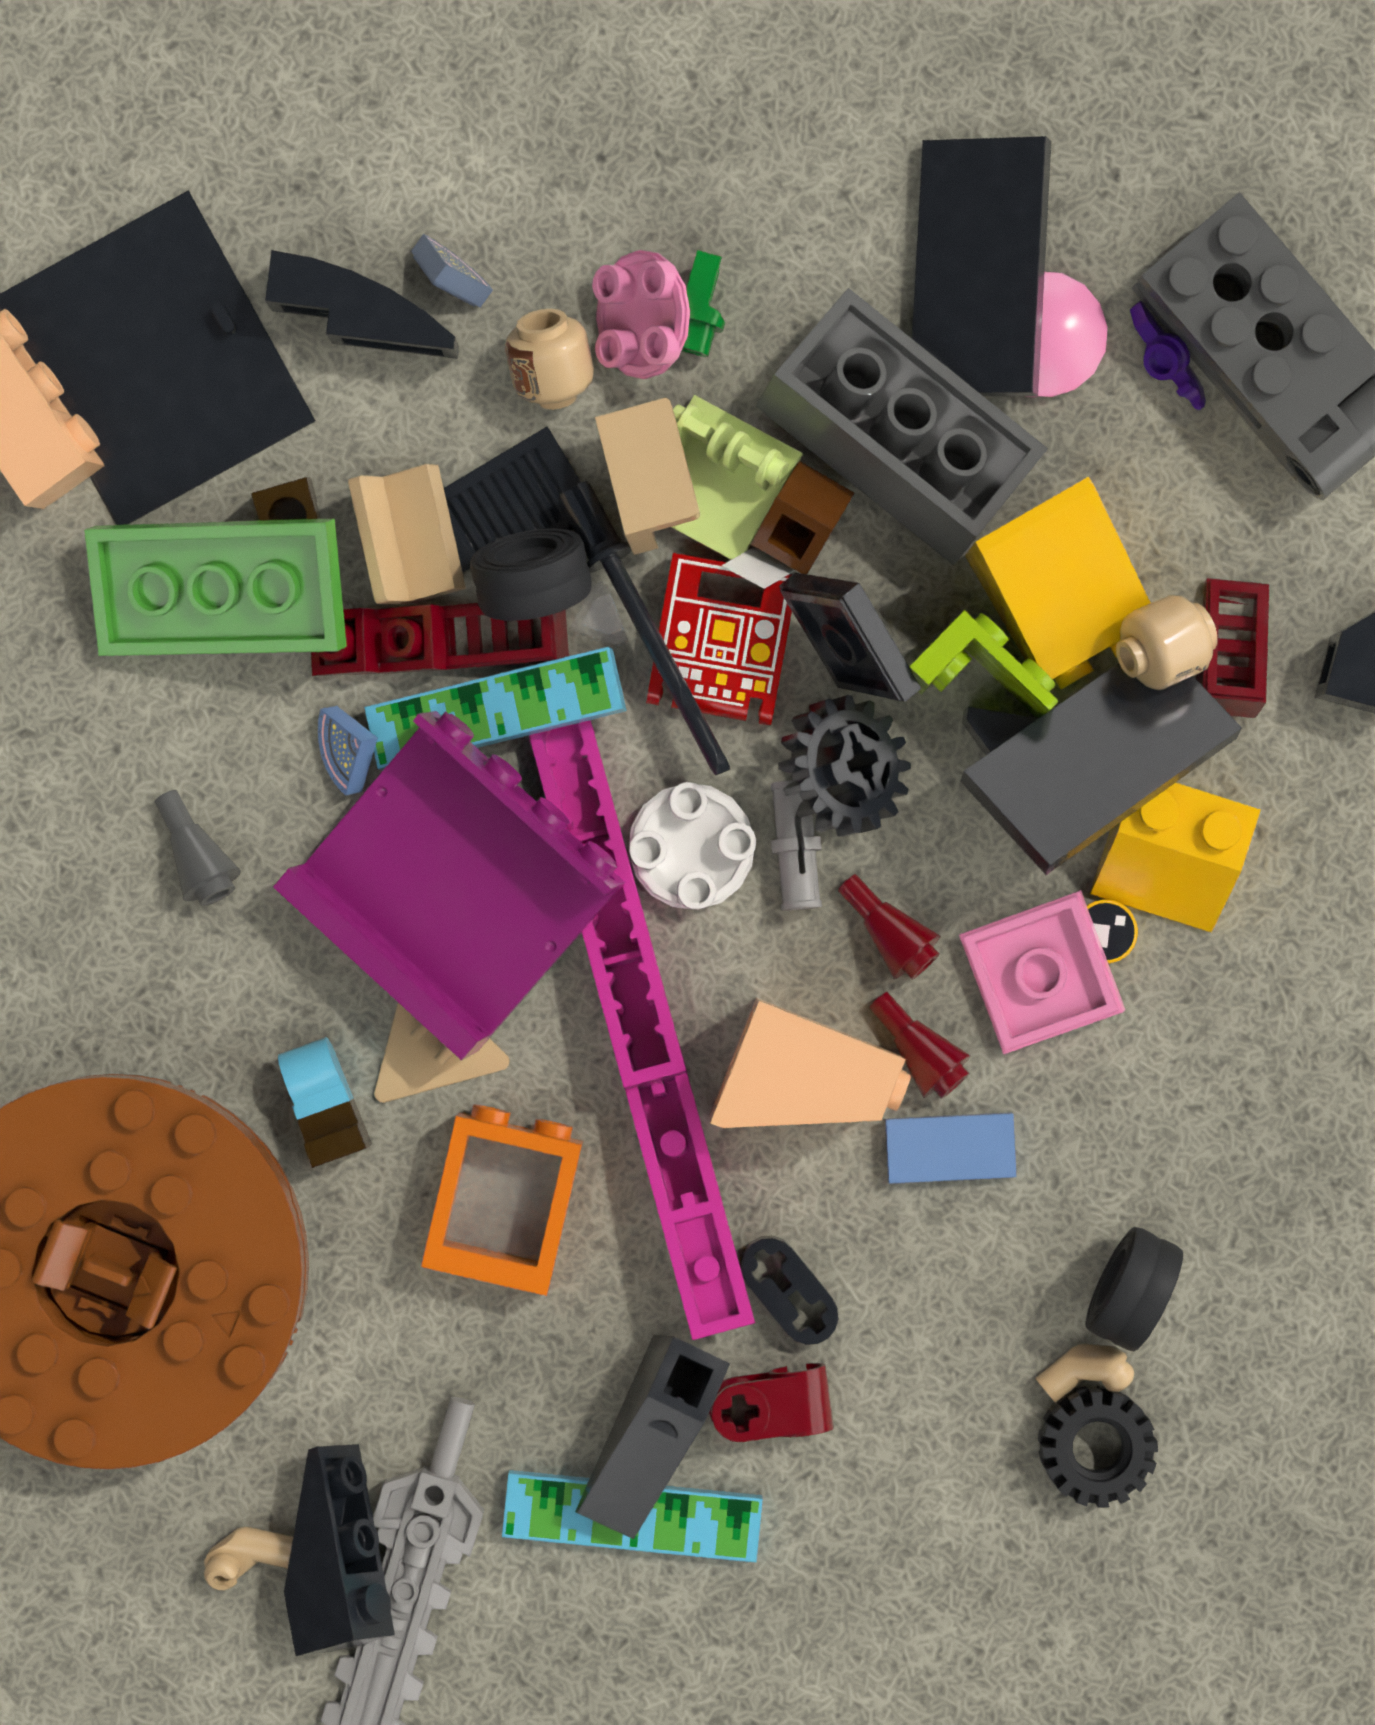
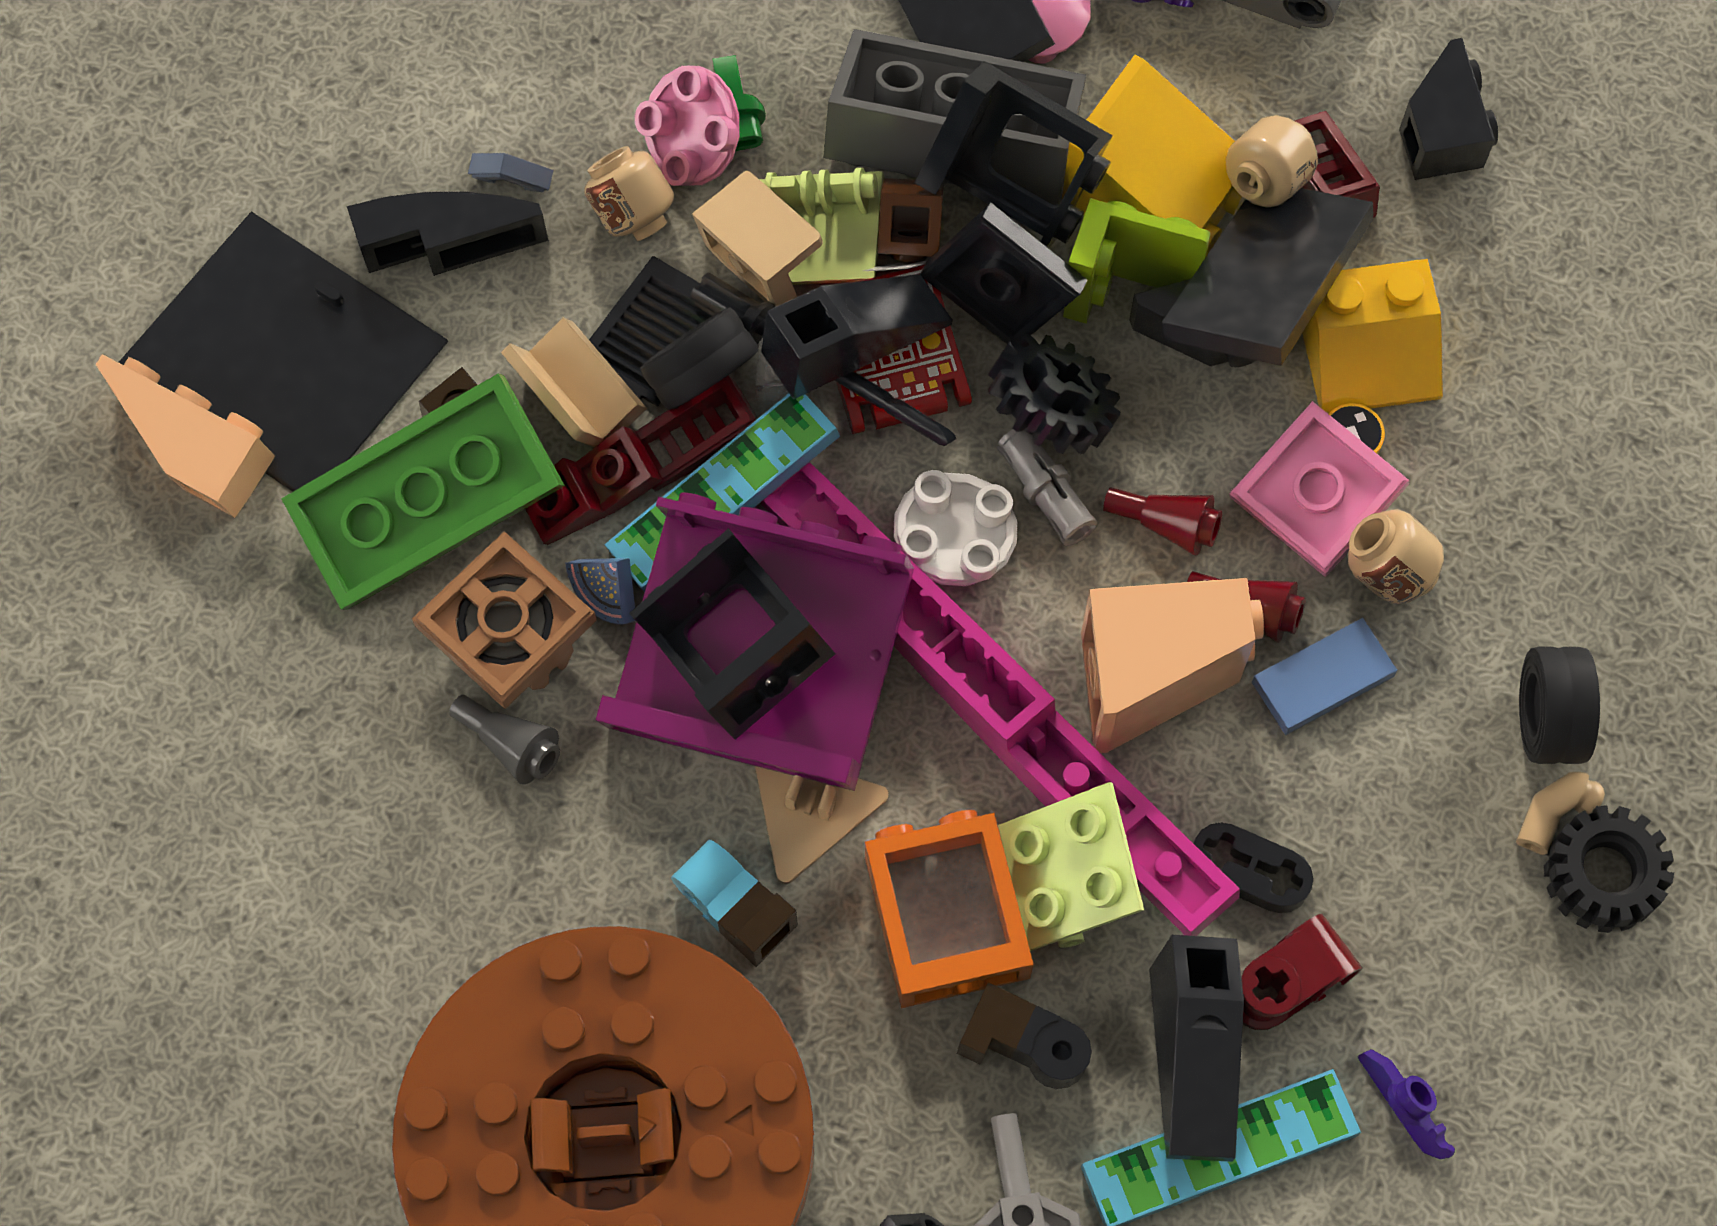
camera: 25 degrees left, 20 degrees down
(235, 749) = (504, 622): none -> medium nougat piece
(441, 933) = (761, 673): none -> black window
(516, 1343) = (1029, 1035): none -> leg
(623, 1224) = (1071, 867): none -> yellowish green hinge
(683, 623) = (847, 328): none -> black slope
(813, 1555) = (1411, 1101): none -> dark purple piece
(877, 498) = (972, 133): none -> black window
(1071, 1076) = (1395, 556): none -> tan head

